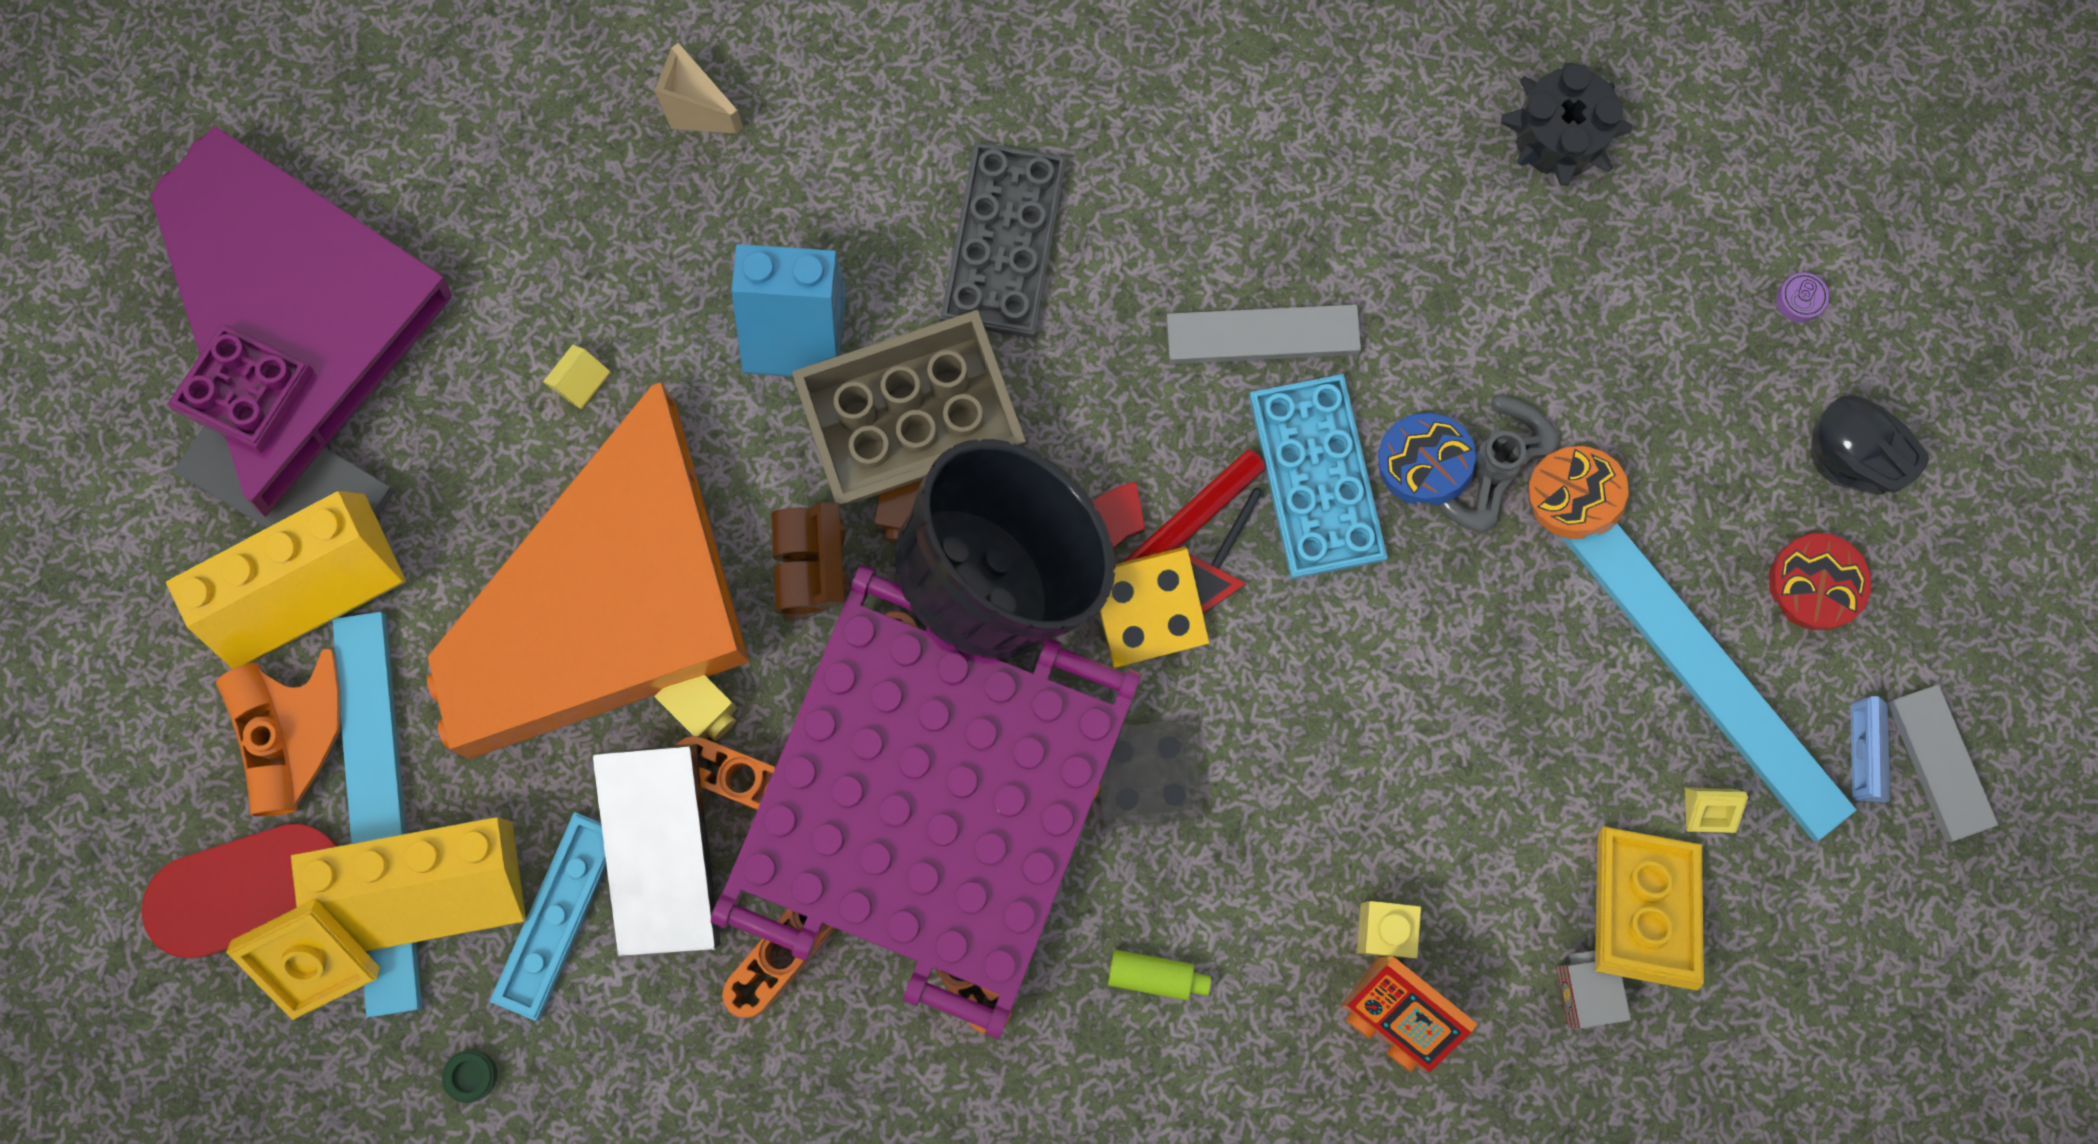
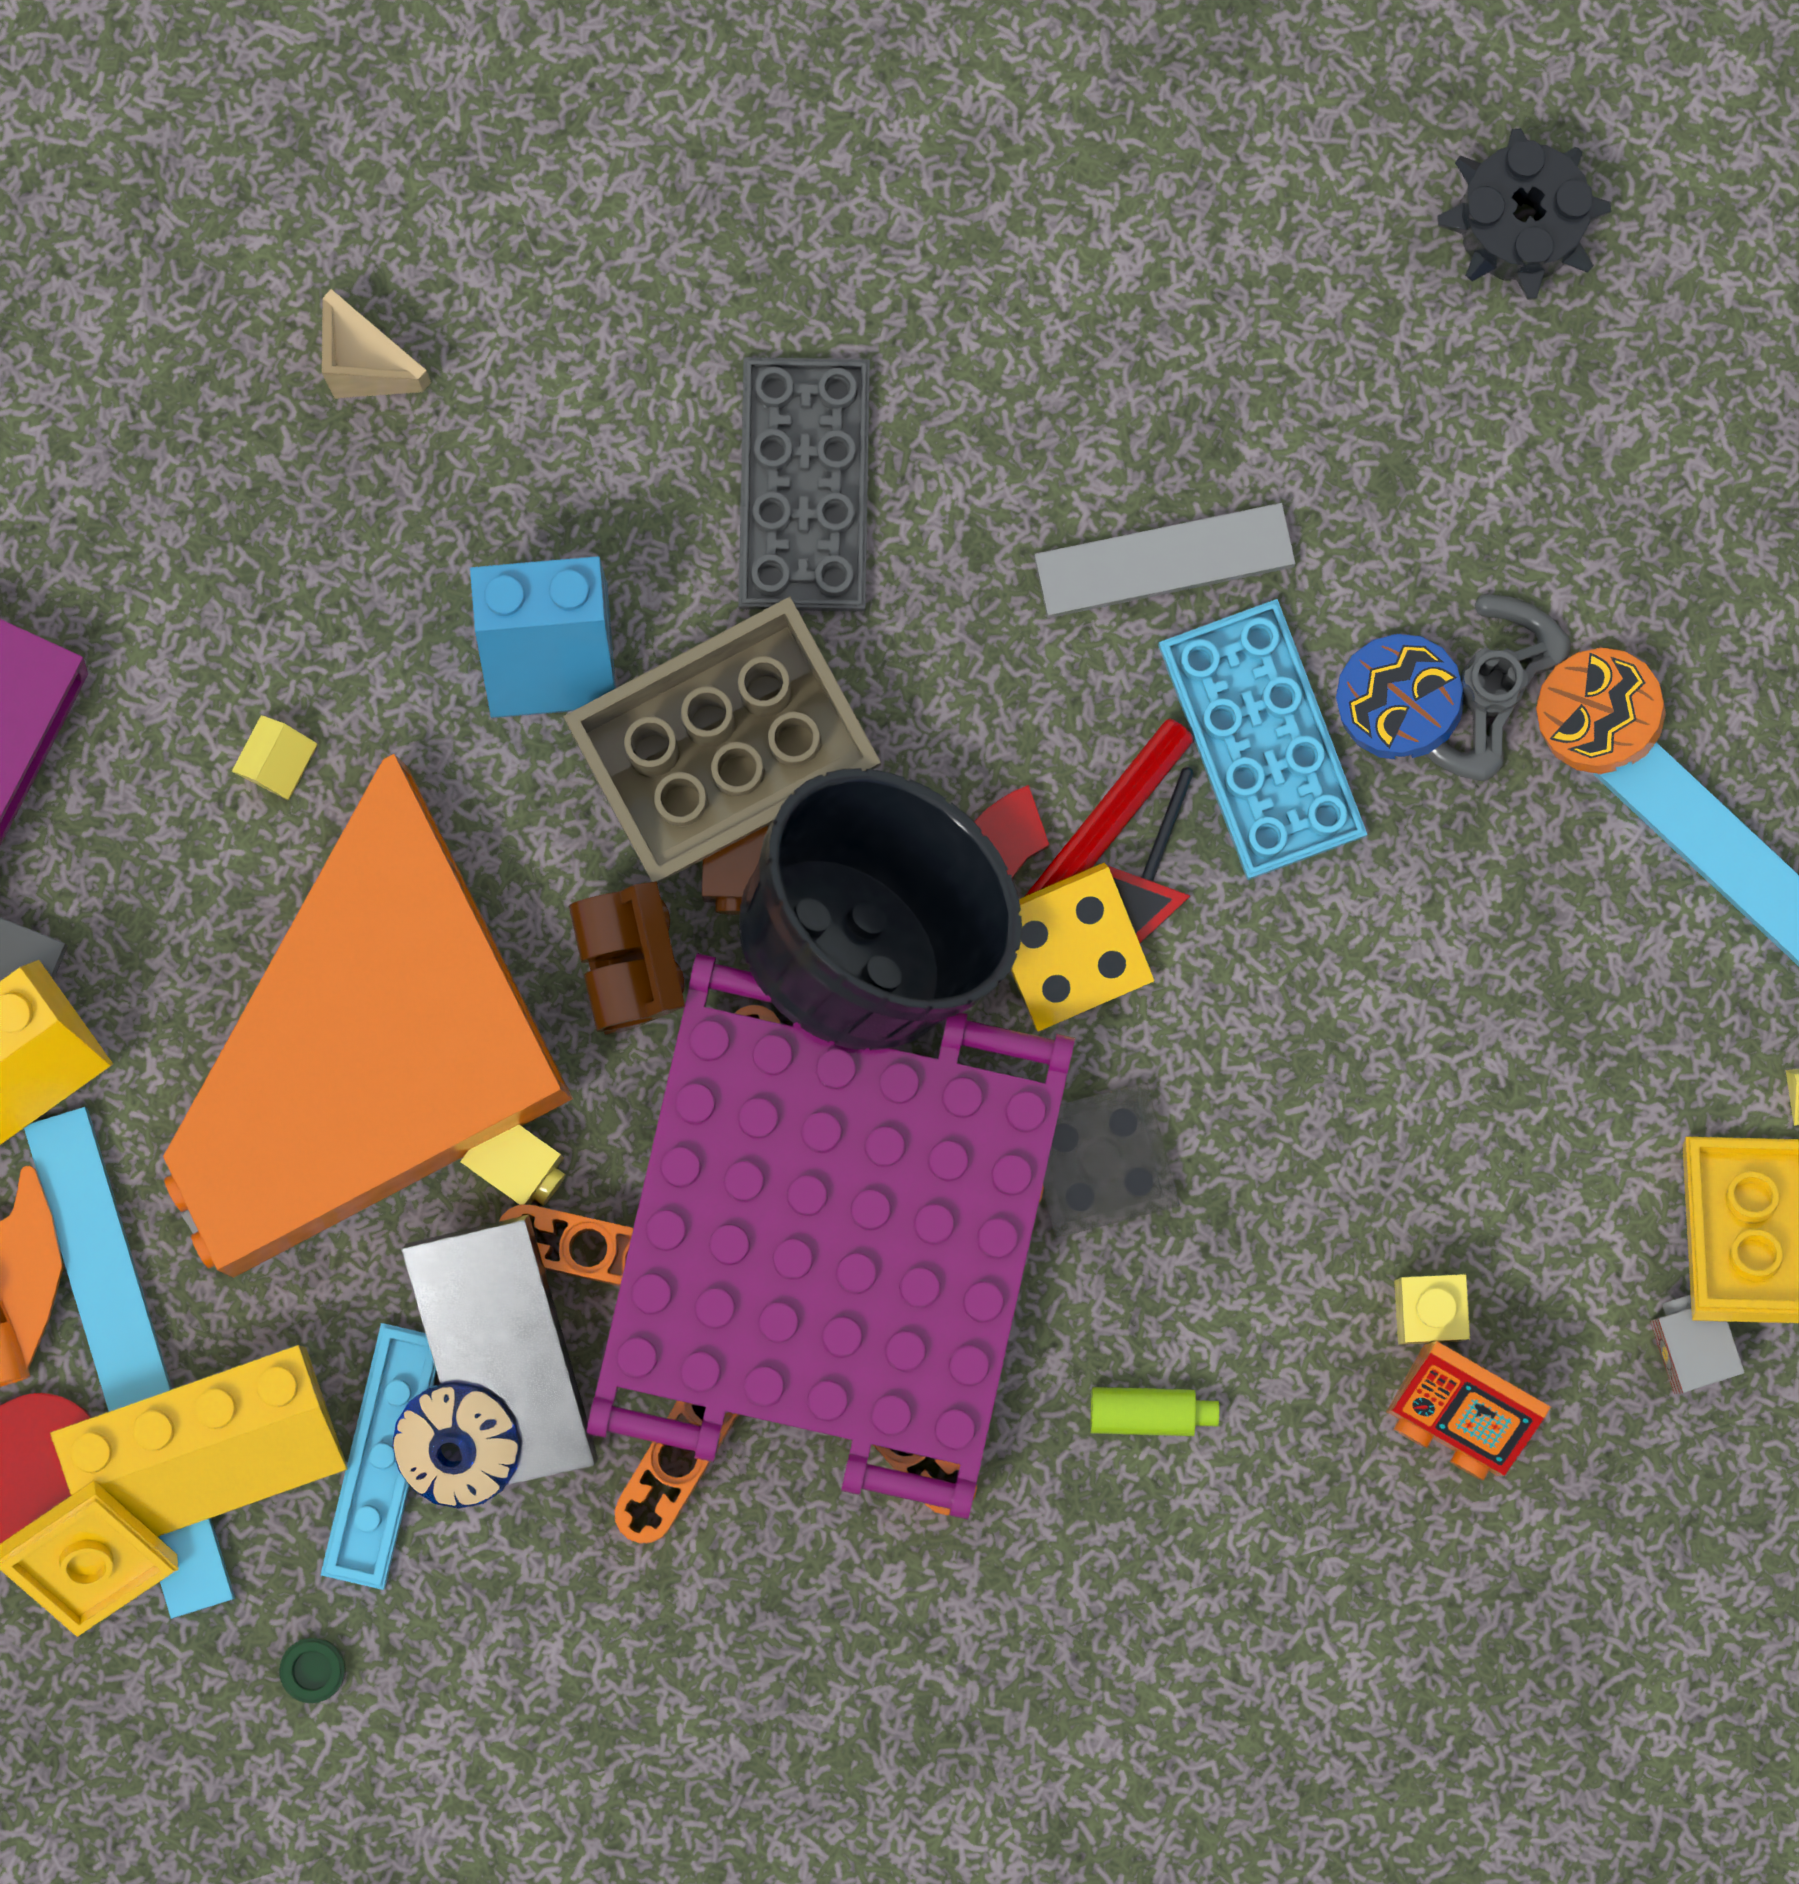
camera: 10 degrees left, 5 degrees up
(627, 903) = (474, 1423): none -> tan dish

